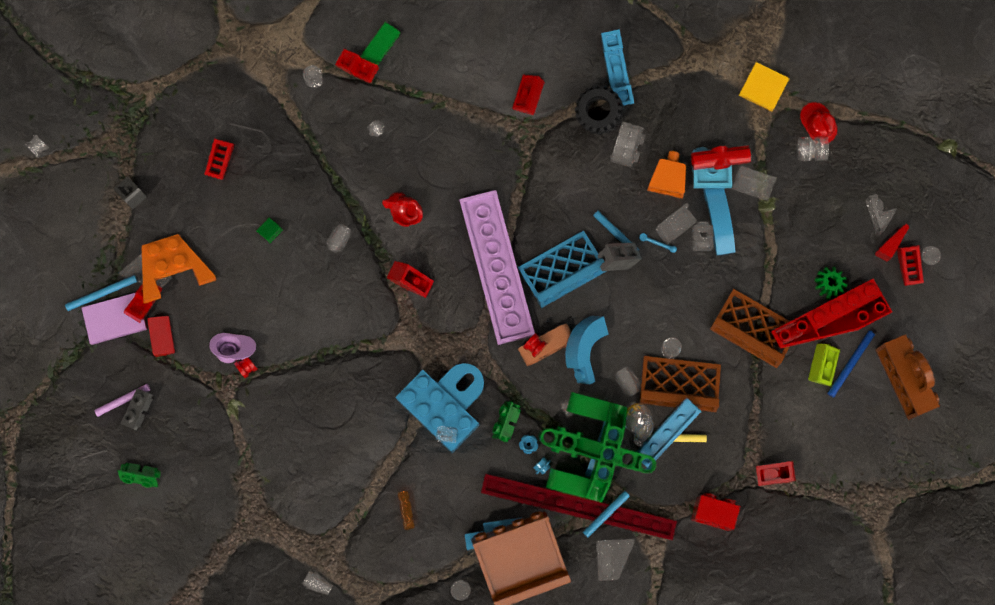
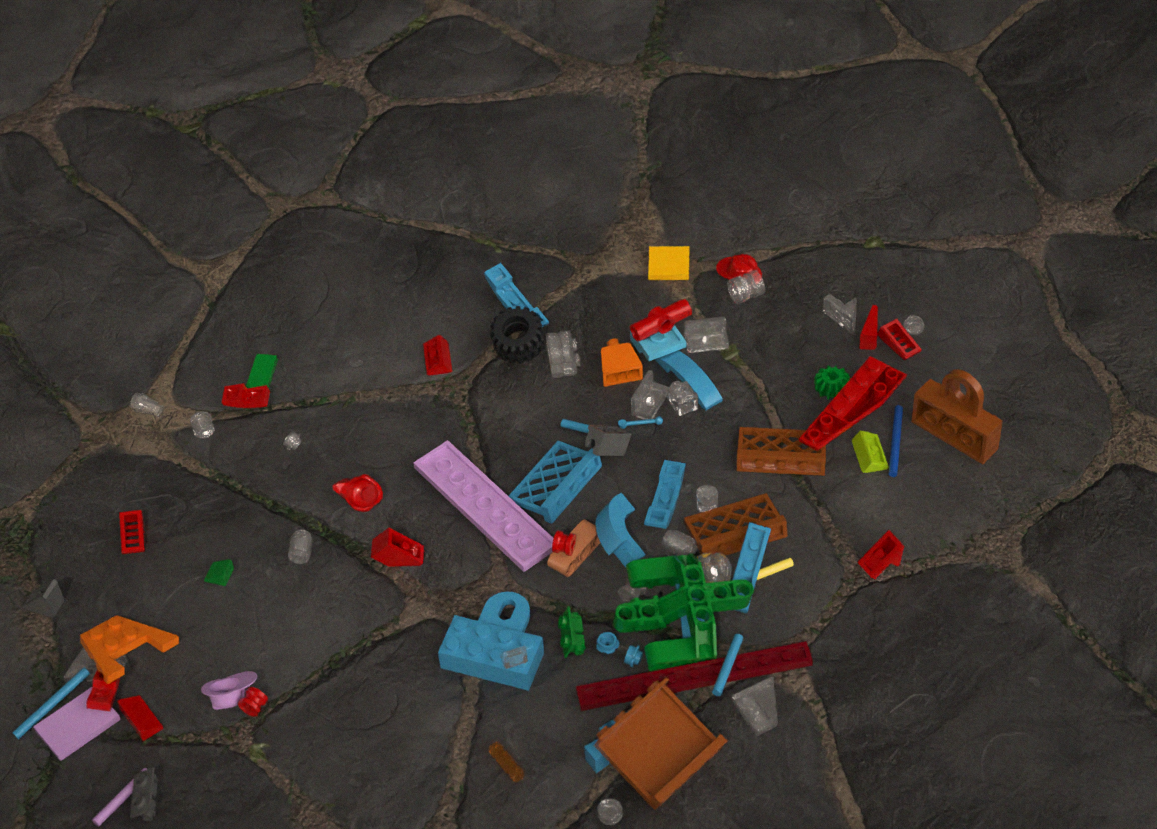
camera: 25 degrees left, 30 degrees down
(277, 34) = (143, 404): none -> clear cone
(639, 330) = (666, 495): none -> dark azure slope
(715, 513) = (841, 612): red brick -> none

